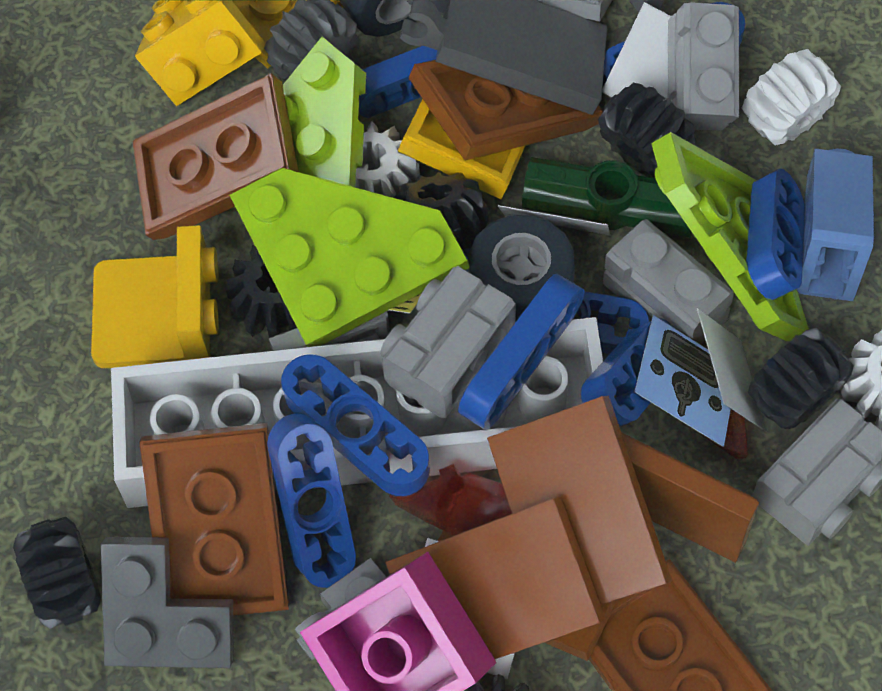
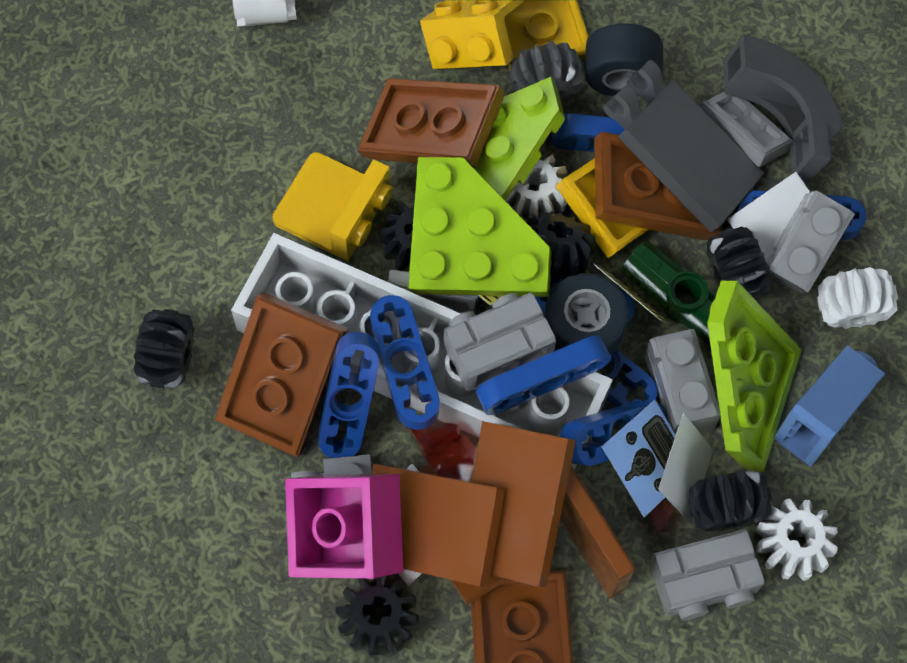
camera: 25 degrees right, 5 degrees up
(147, 625) = (201, 413): dark grey plate -> none
(776, 235) = (779, 390): blue beam -> none

